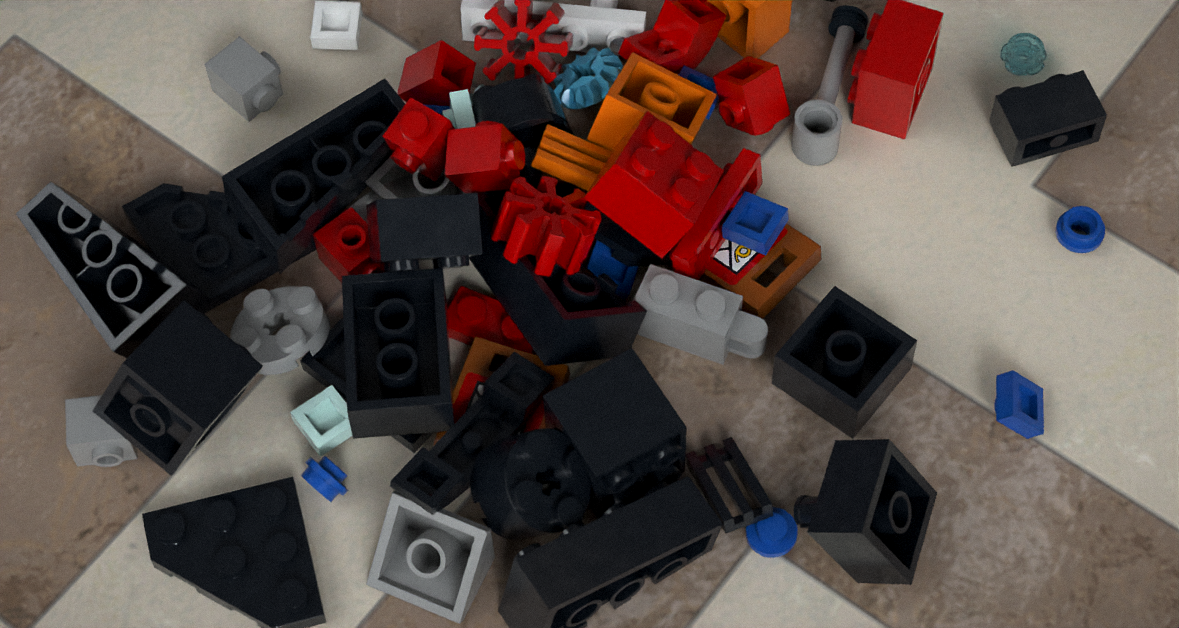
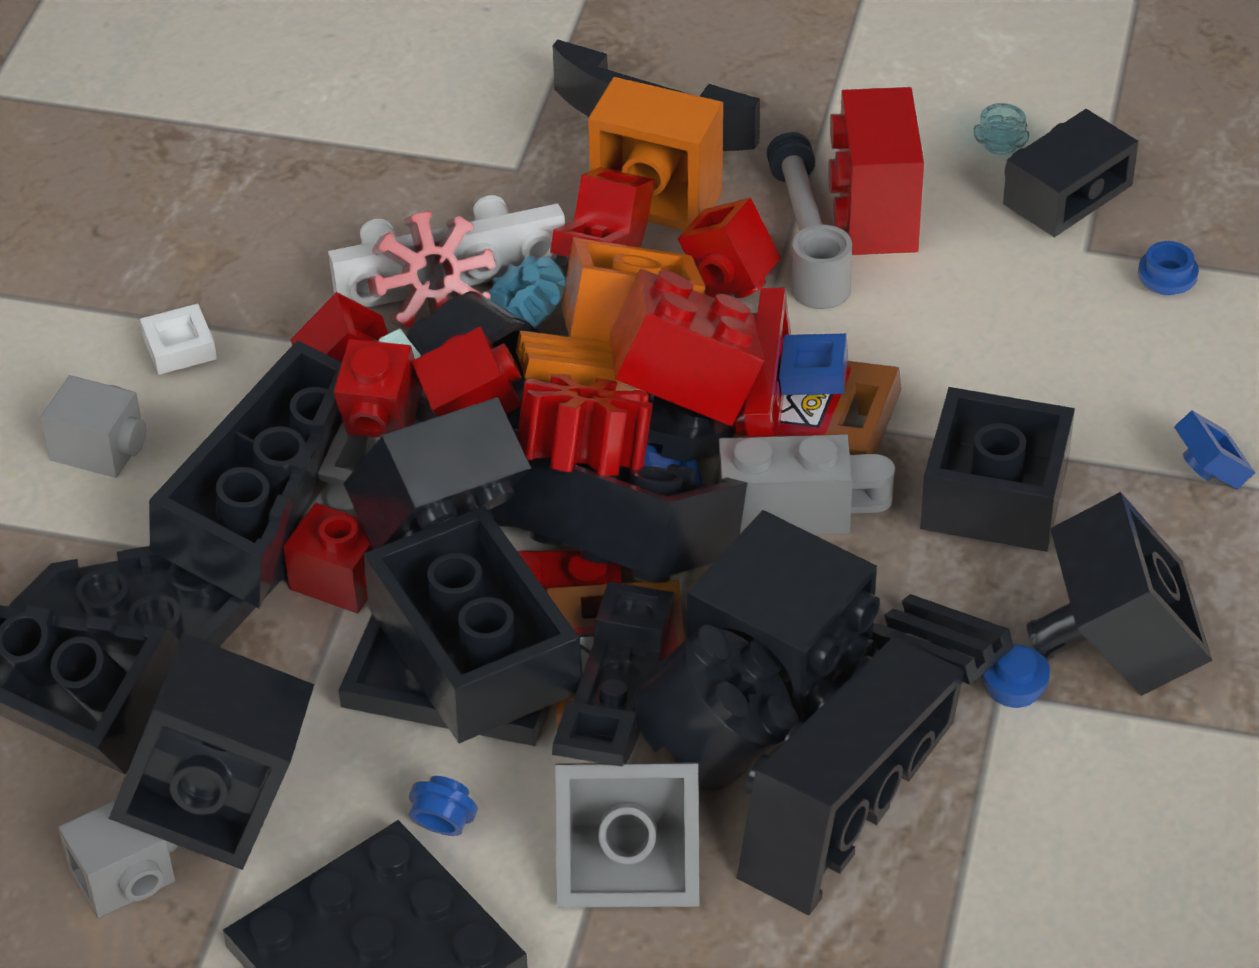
camera: 25 degrees left, 15 degrees down
(269, 310) = (310, 641): light grey plate -> none
(323, 420) = (405, 745): light aqua plate -> none

